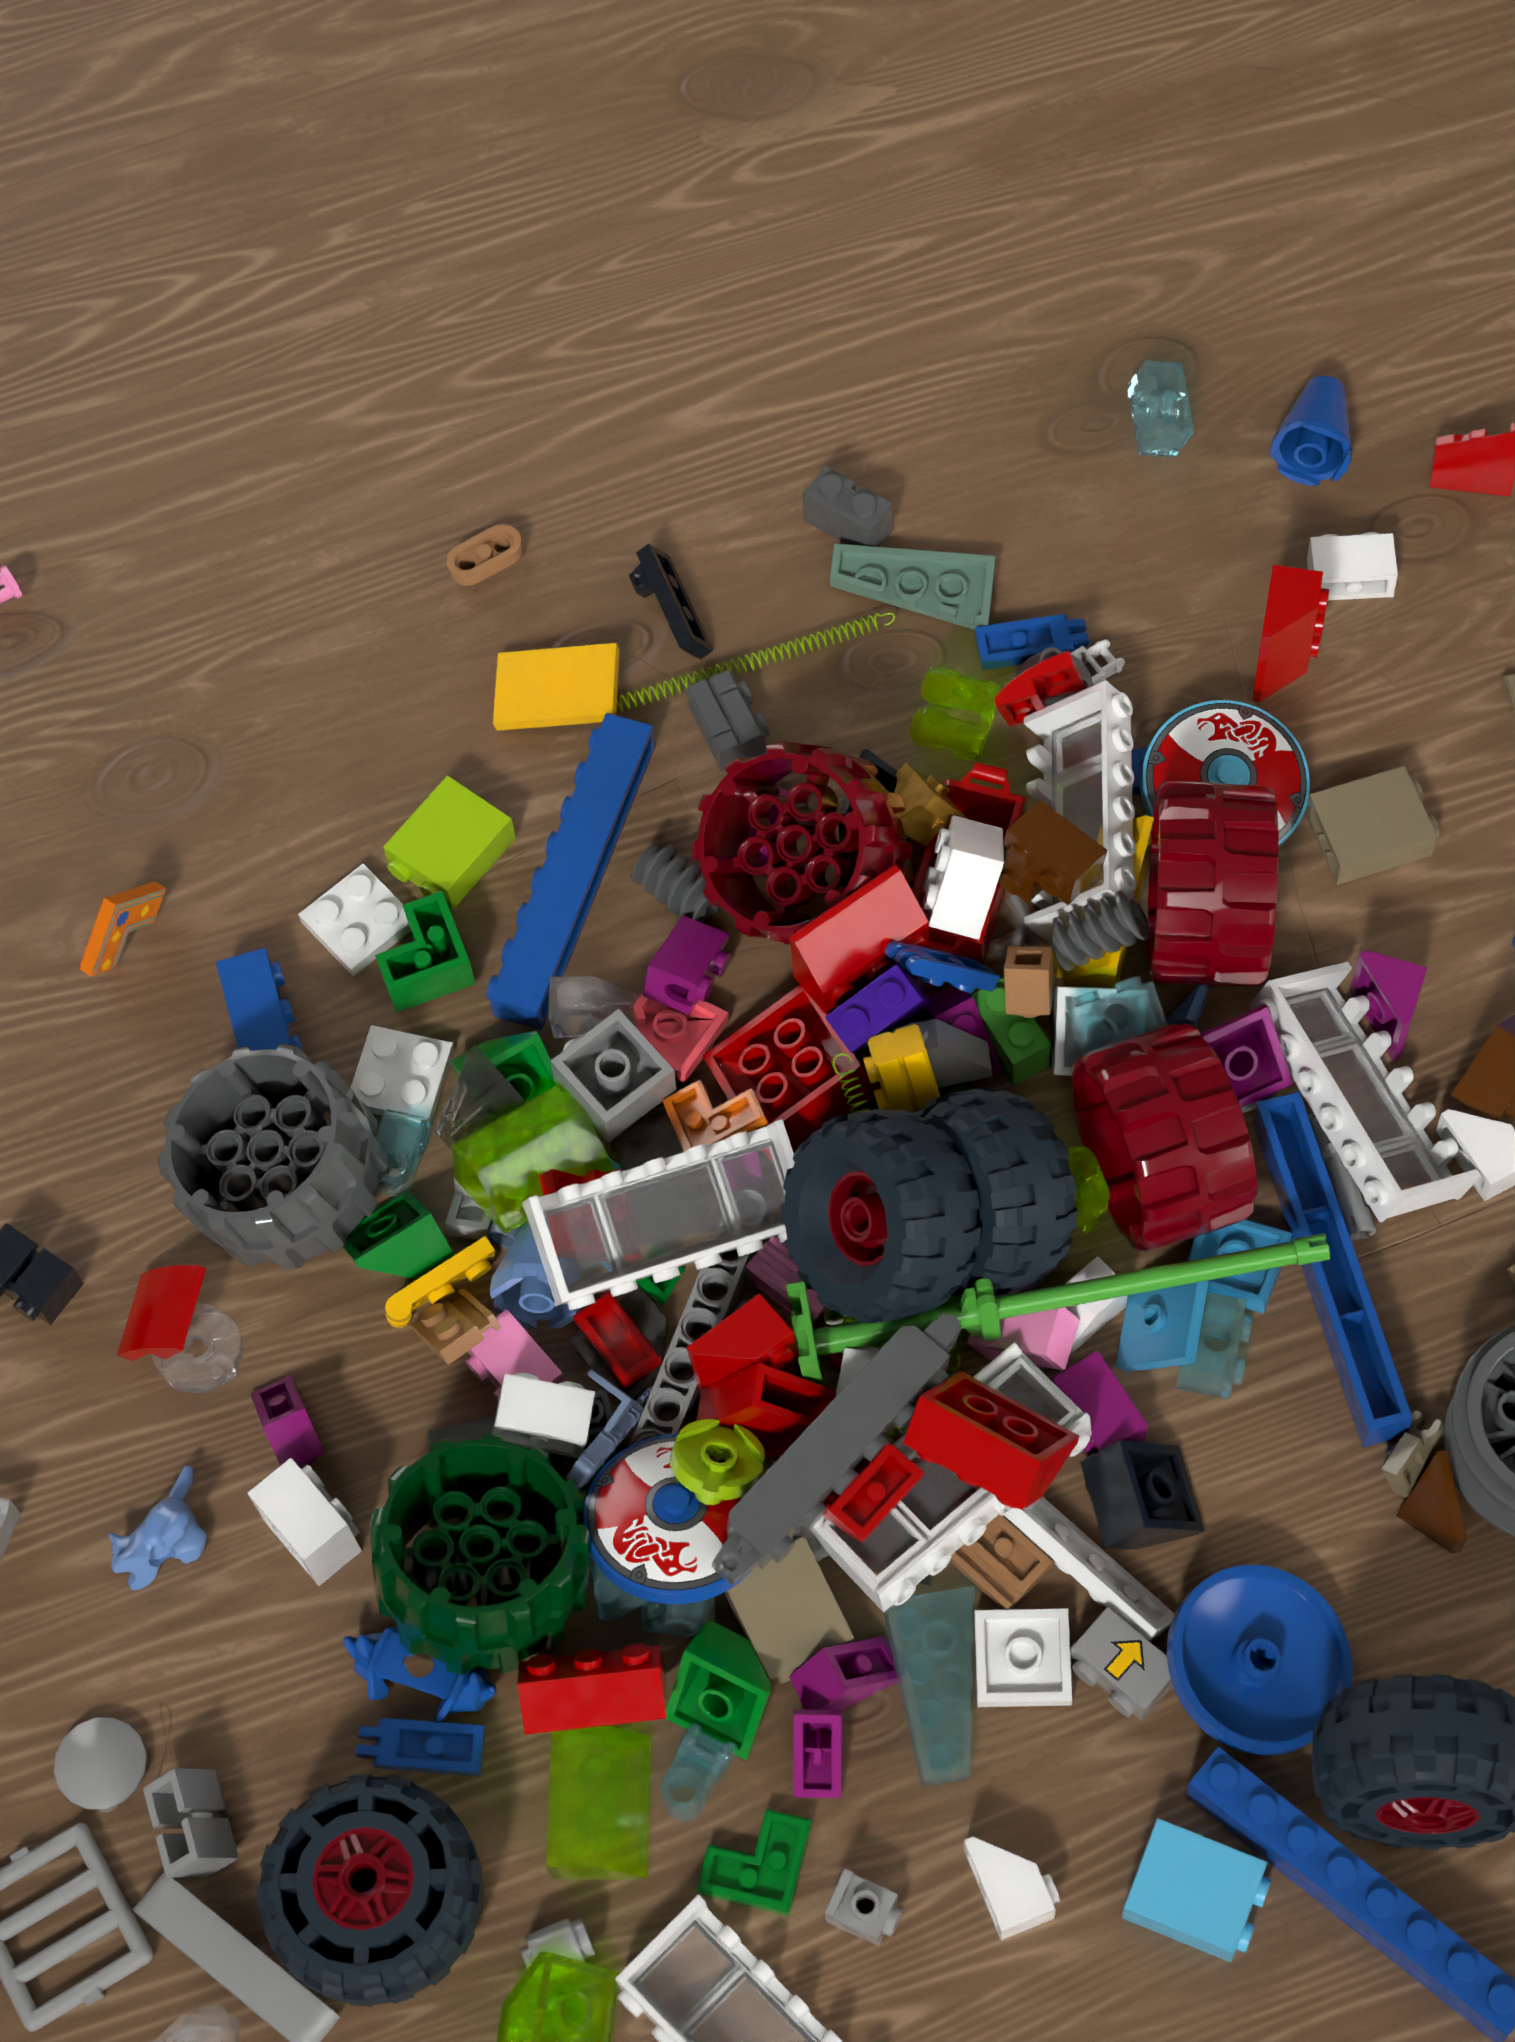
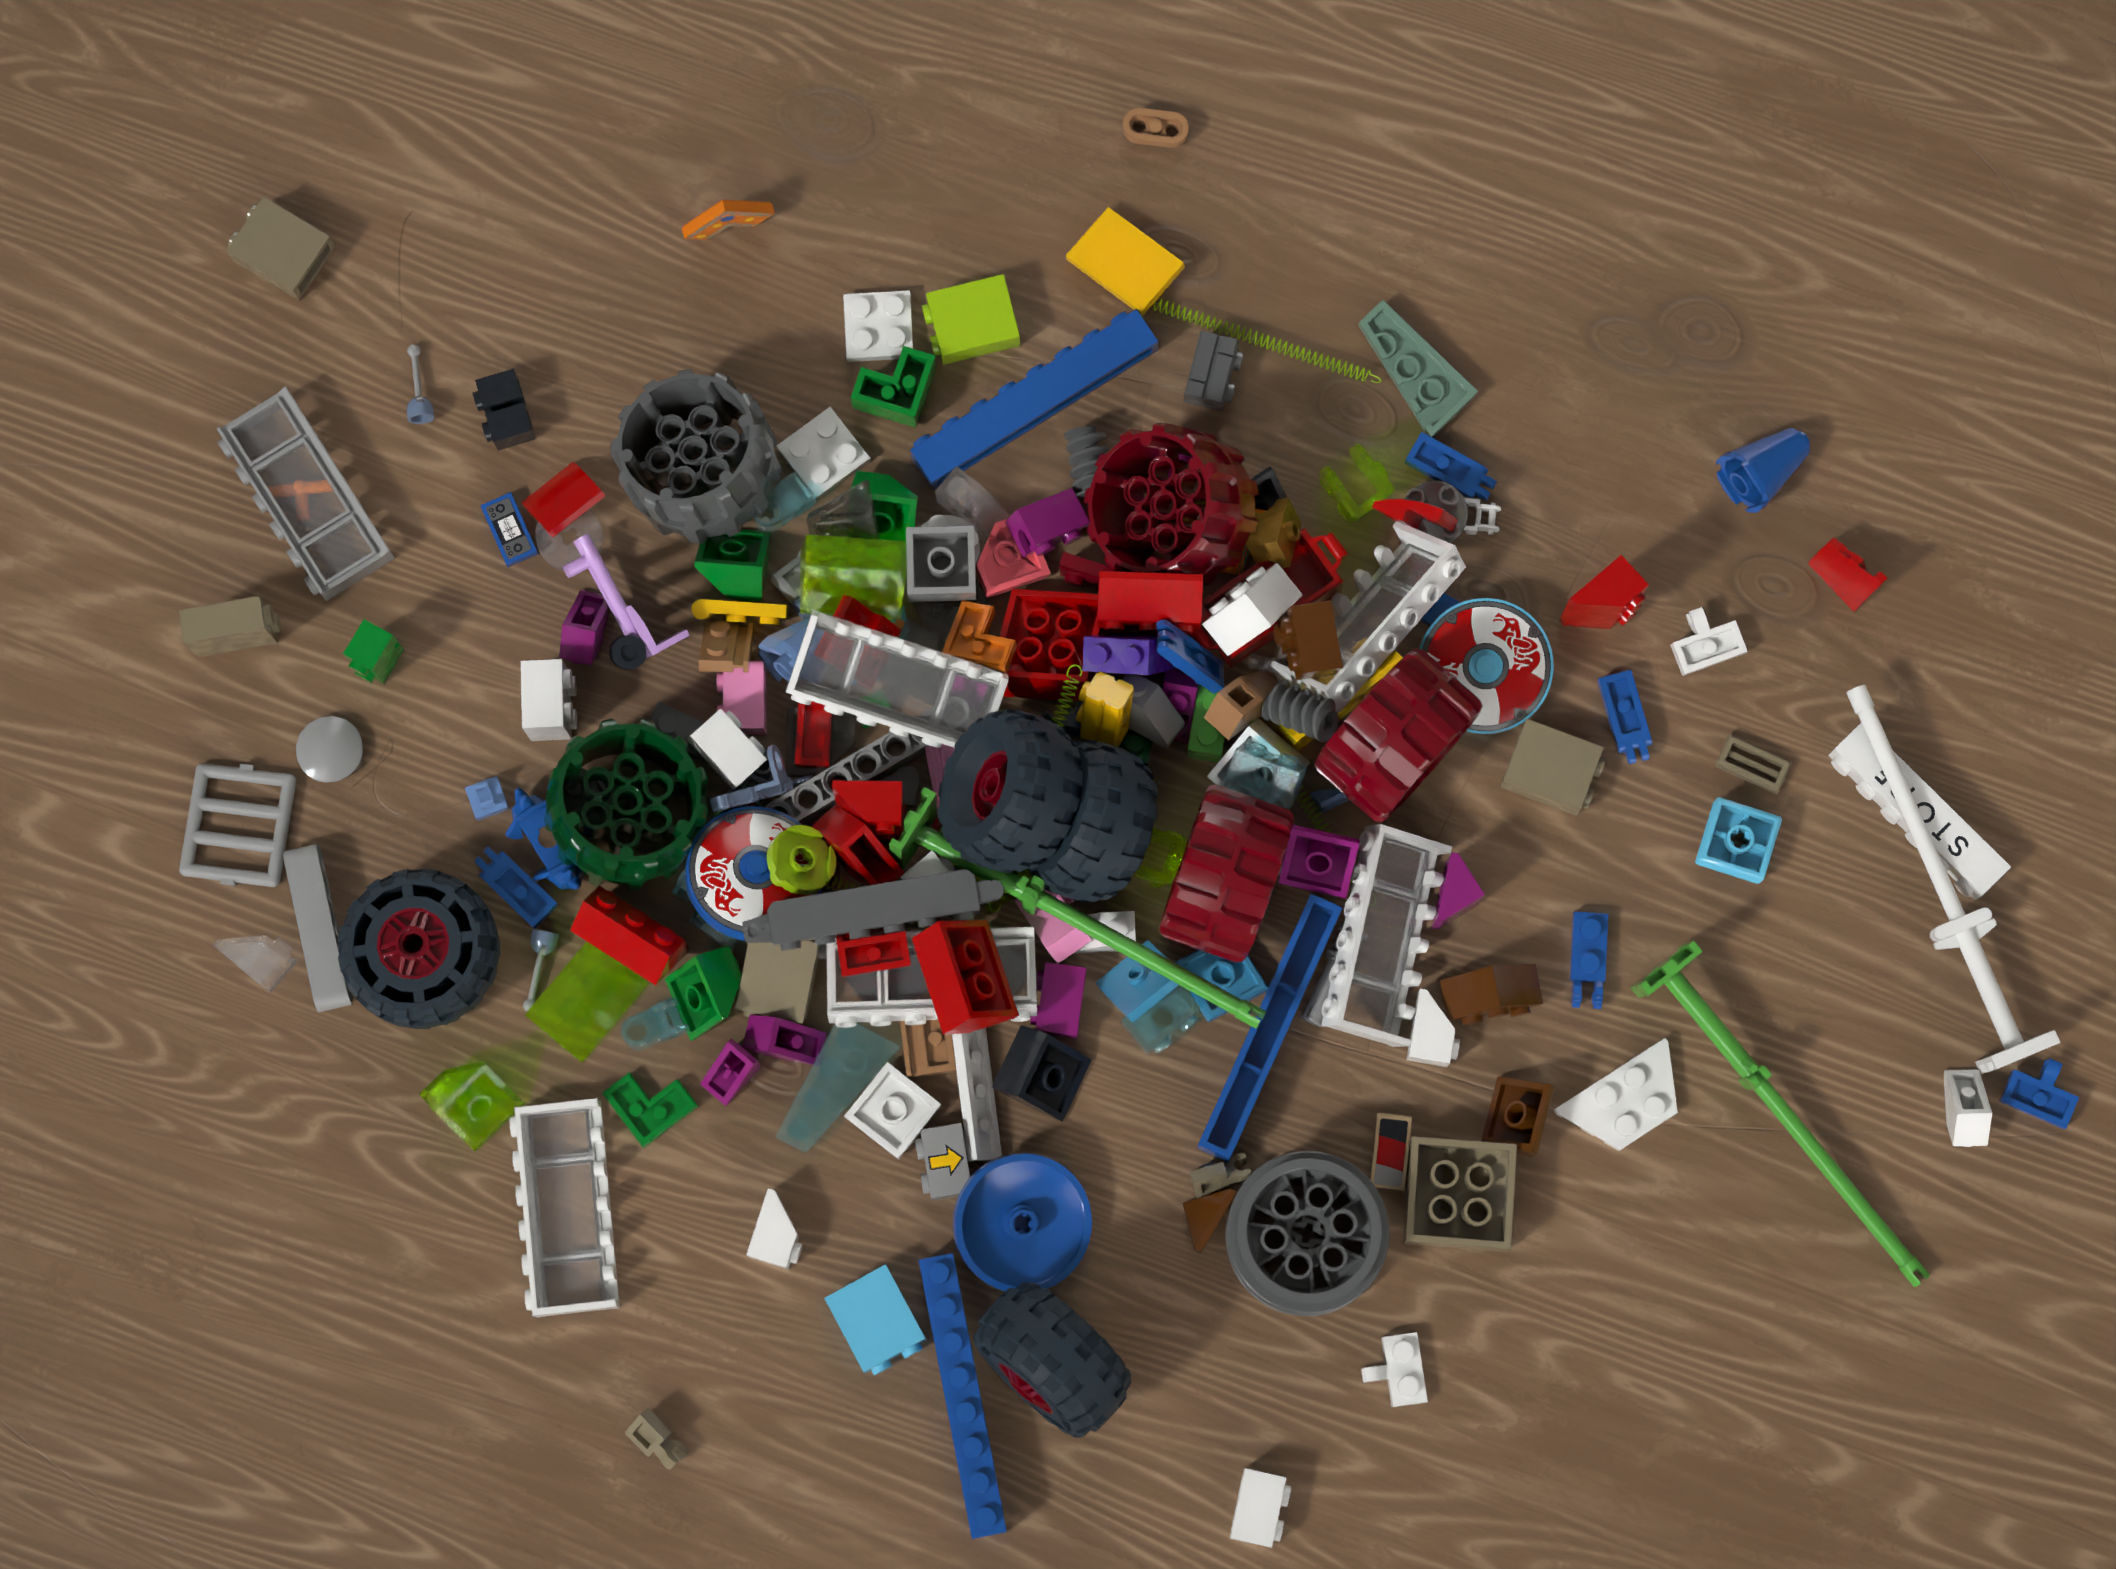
camera: 35 degrees right, 15 degrees up
(72, 1617) = (372, 652): none -> green brick
(125, 1390) = (509, 529): none -> tile
(164, 1533) = (465, 639): medium blue animal -> none
(192, 1803) = (358, 812): light grey piece -> none
(255, 1002) = (767, 347): blue brick -> none
(318, 1680) = (487, 798): none -> medium blue tile
(346, 1373) = (636, 643): none -> lavender hand
(502, 1783) = (543, 944): none -> hinge
(561, 1938) = (502, 1061): light grey brick -> none
(659, 576) = (1253, 235): black hinge -> none
(761, 983) = (1081, 570): none -> dark red plate
(844, 1915) = (683, 1164): light grey brick -> none
(845, 513) = (1408, 282): dark grey piece -> none
(1160, 408) = (1674, 371): clear light blue brick -> none
(1355, 565) = (1700, 580): white brick -> none
(1394, 730) = (1625, 715): none -> blue hinge
(1408, 616) = (1707, 645): none -> white plate

